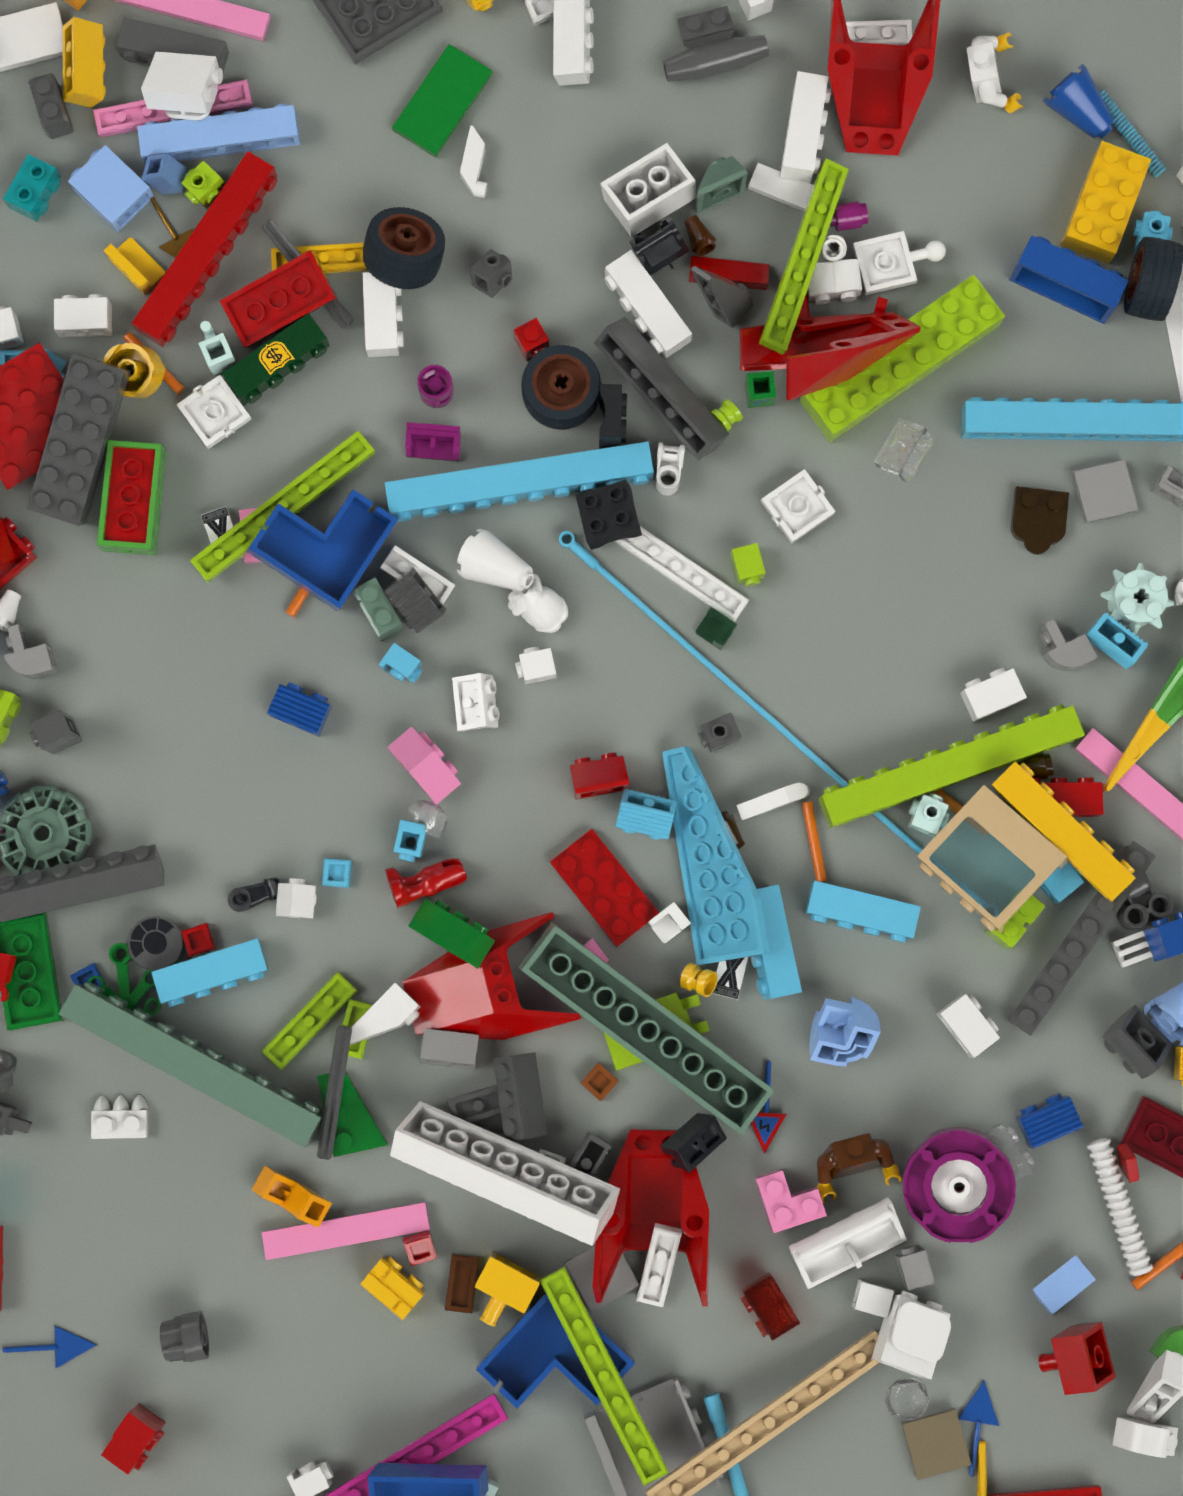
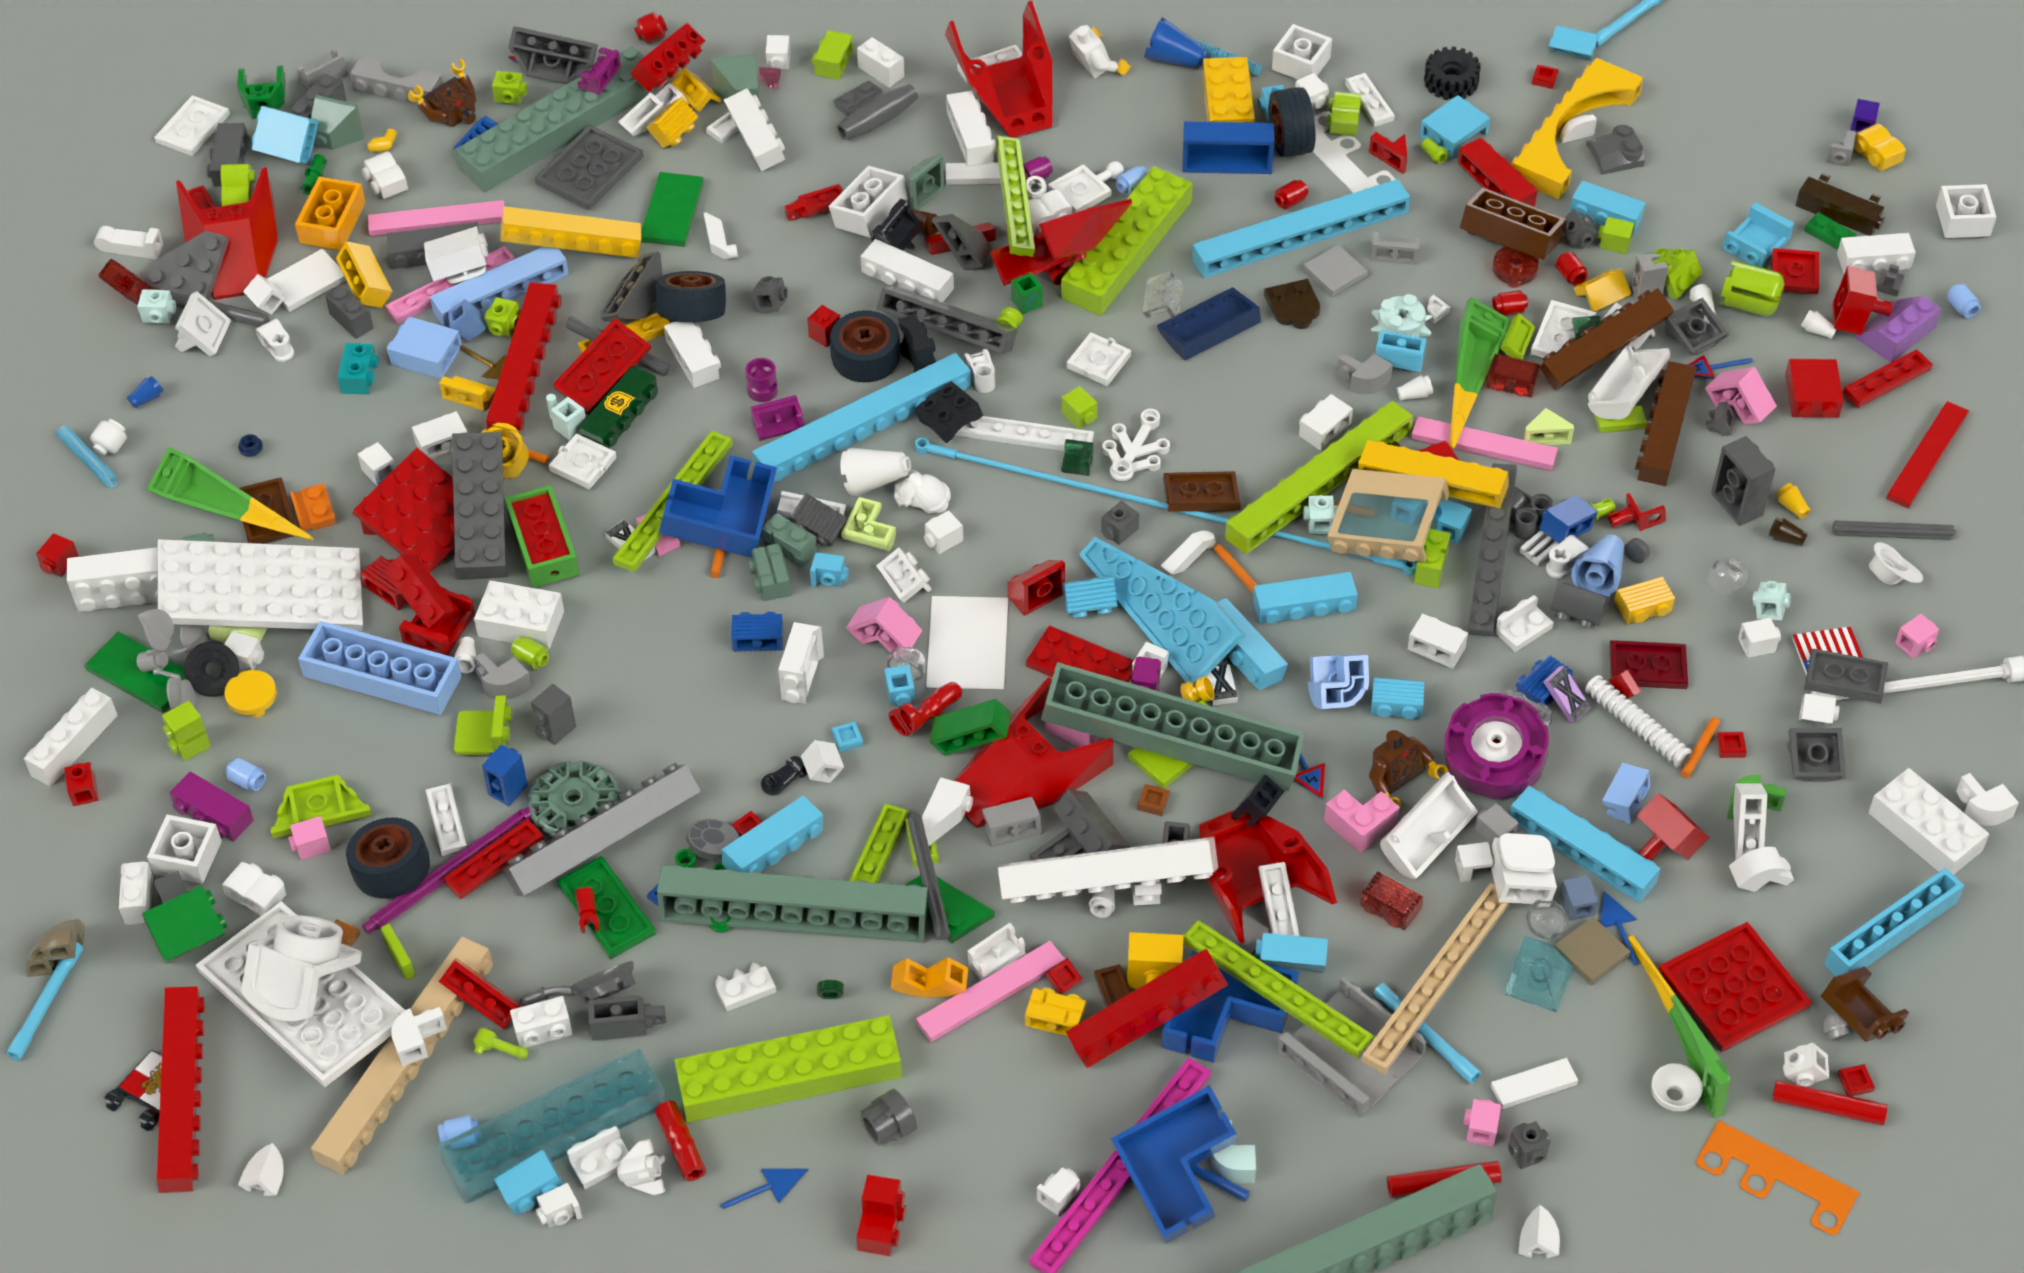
camera: 20 degrees left, 30 degrees down
(68, 636) = (530, 652): none -> lime brick
(74, 586) = (518, 611): none -> white brick
(118, 1238) = (788, 1068): none -> lime brick
(195, 1165) = (830, 989): none -> dark green tile
(313, 102) = (570, 232): none -> yellow brick
(319, 776) = (800, 662): none -> white window
(343, 640) = (771, 572): none -> sand green brick
(350, 209) = (635, 291): none -> dark grey wedge
(367, 1196) = (996, 952): none -> white hinge
(458, 627) = (863, 528): none -> yellowish green brick
(471, 1342) = (1146, 1008): none -> red brick
(504, 807) = (967, 642): none -> white sticker
(596, 160) = (812, 203): none -> red hinge
(641, 1333) = (1293, 952): none -> medium azure brick
(647, 956) = (1147, 673): none -> magenta brick
(780, 640) = (1124, 468): none -> white plant
(823, 727) = (1201, 491): none -> reddish brown tile
(869, 1451) = (1539, 974): none -> clear light blue slope
(894, 1073) = (1397, 698): none -> medium azure brick
(937, 506) = (1210, 323): none -> dark blue slope
(946, 275) = (1130, 179): none -> light blue brick
(952, 1384) = (1578, 897): none -> sand blue brick
(990, 1326) = (1585, 844): none -> medium azure brick
(1063, 1149) = (1566, 694): none -> tile
(1066, 1039) = (1522, 624): none -> white bracket
(1108, 368) = (1291, 194): none -> red brick
(1109, 691) = (1416, 388): none -> white cone
(1156, 975) = (1564, 556): none -> white piece

